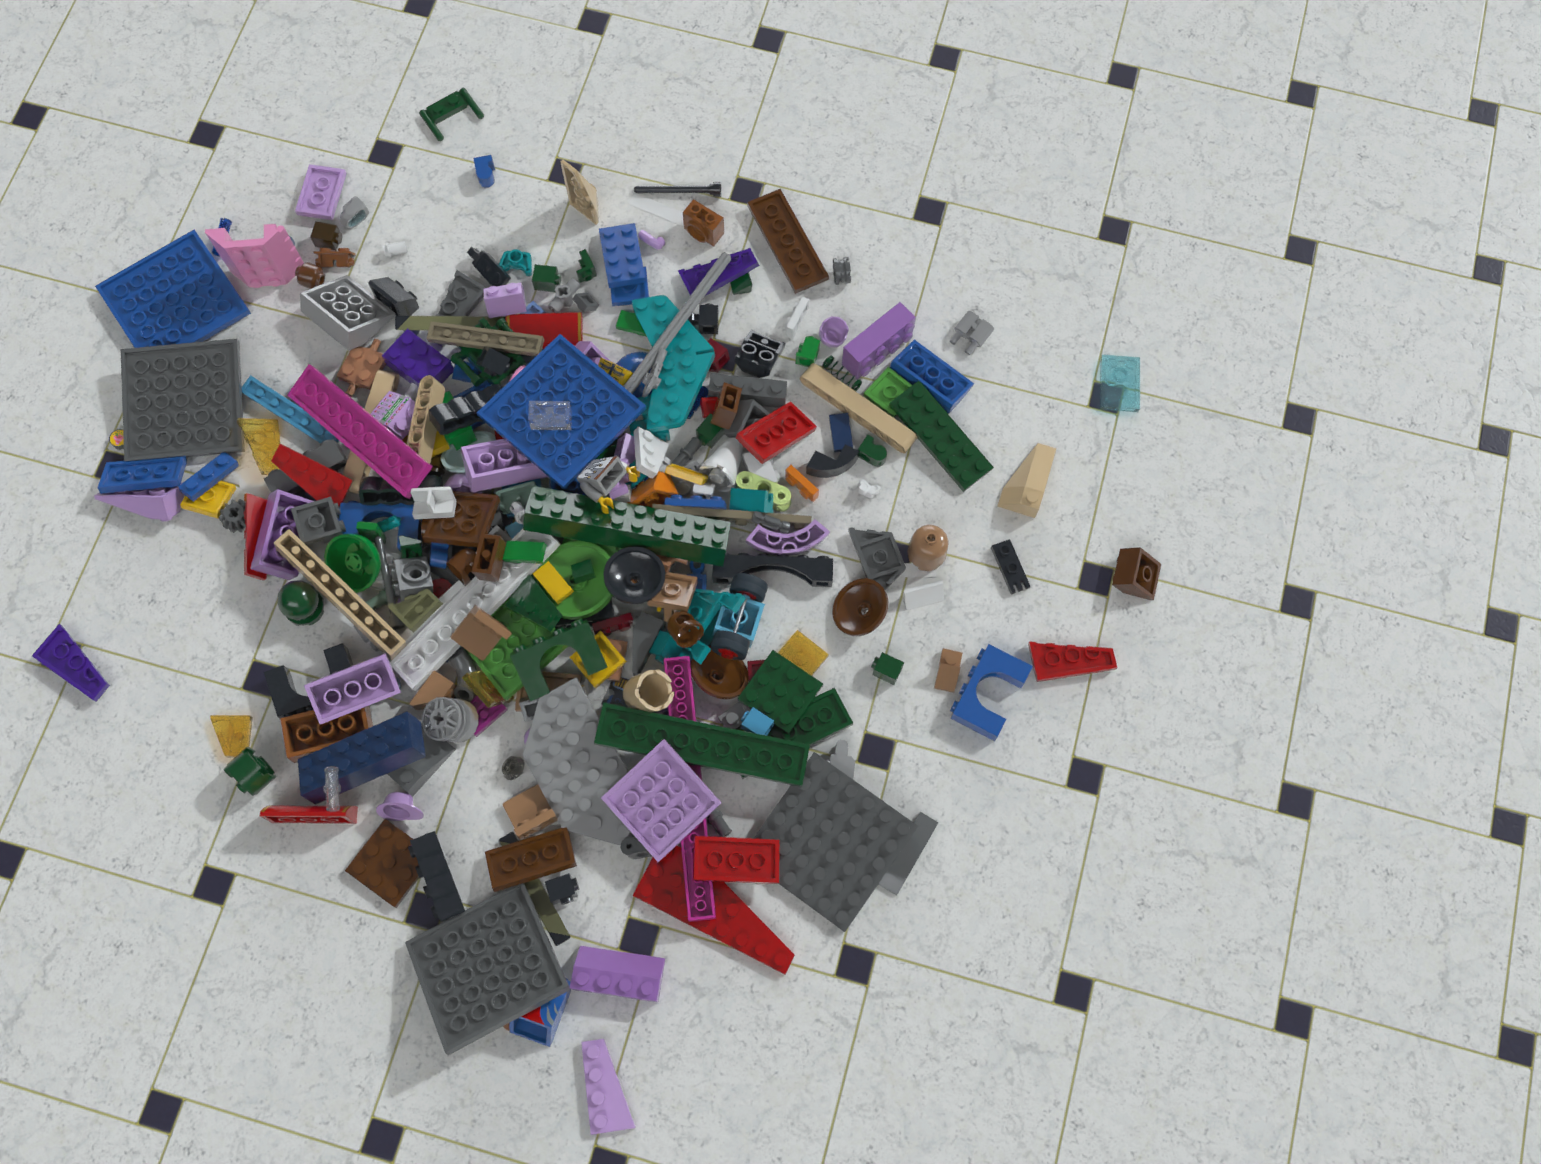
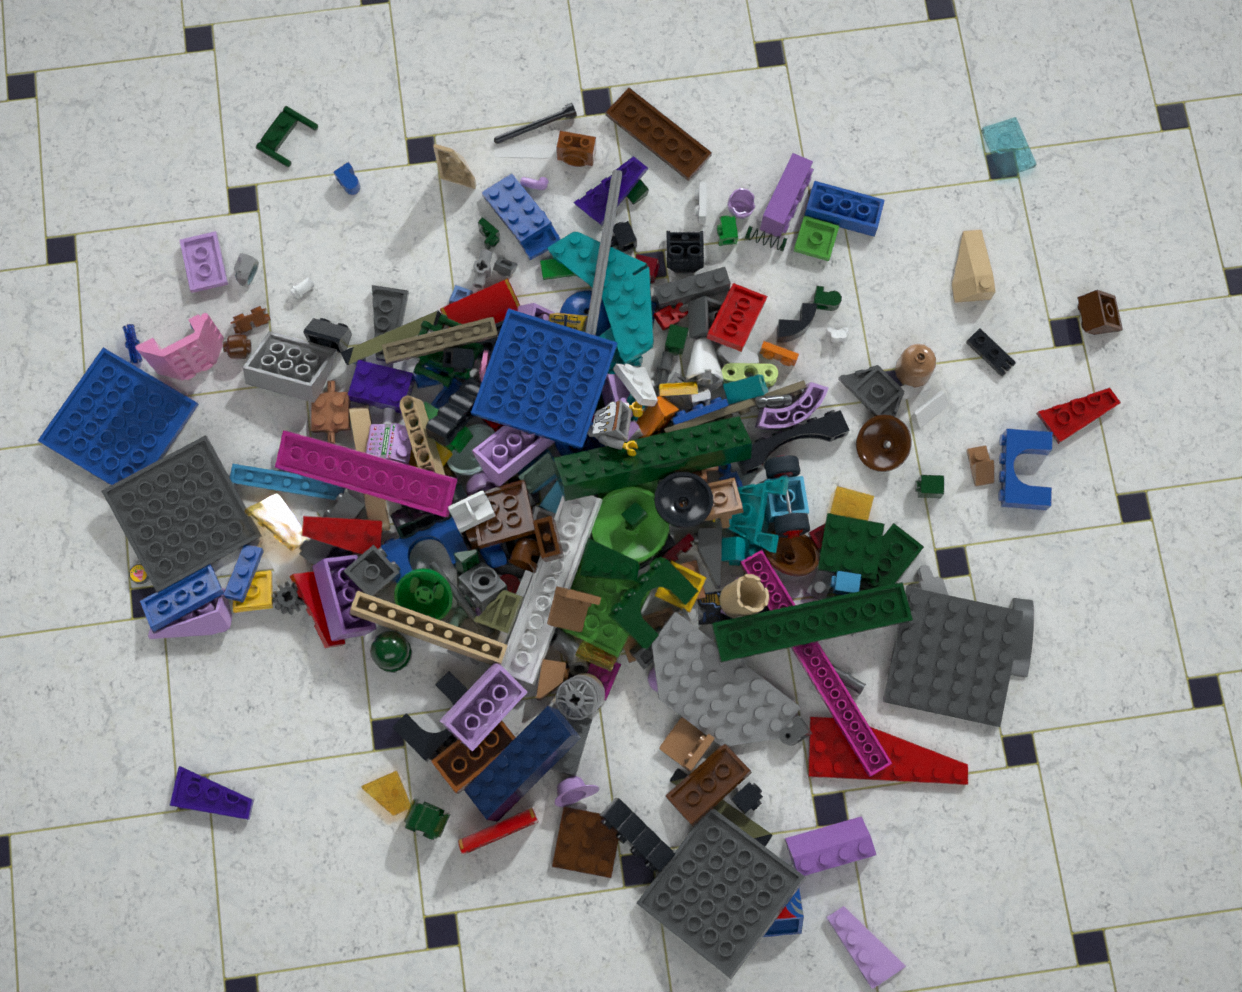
camera: 25 degrees left, 5 degrees up
(326, 235) = (232, 302): dark brown brick -> none
(332, 788) = (514, 801): clear pin -> none
(370, 531) = (422, 560): green tile -> none
(389, 523) = (432, 547): teal axle -> none
(488, 267) = (400, 271): black hinge -> none
(505, 300) = (433, 296): lavender slope -> none
(513, 767) = (652, 713): clear smoke hat -> none
(517, 260) = (420, 252): teal piece -> none
(518, 512) = (551, 488): white pin -> none
(524, 552) = (575, 520): green tile -> none
(545, 278) = (457, 259): dark green brick -> none
(550, 415) = (542, 388): clear brick -> none
(553, 582) = (612, 536): yellow tile -> none
(651, 379) = (607, 315): light grey piece -> none
(661, 800) = (802, 685): lavender plate -> none
(679, 626) = (748, 529): reddish brown helmet -> none
(726, 406) = (684, 312): reddish brown brick -> none
(736, 860) = (886, 707): red plate -> none
(840, 431) = (789, 292): dark blue tile -> none
(841, 270) = (721, 143): dark grey wheel -> none
(858, 408) = (795, 264): tan beam -> none
(941, 436) = (879, 260): dark green plate -> none
(973, 329) = (862, 150): light grey piece -> none

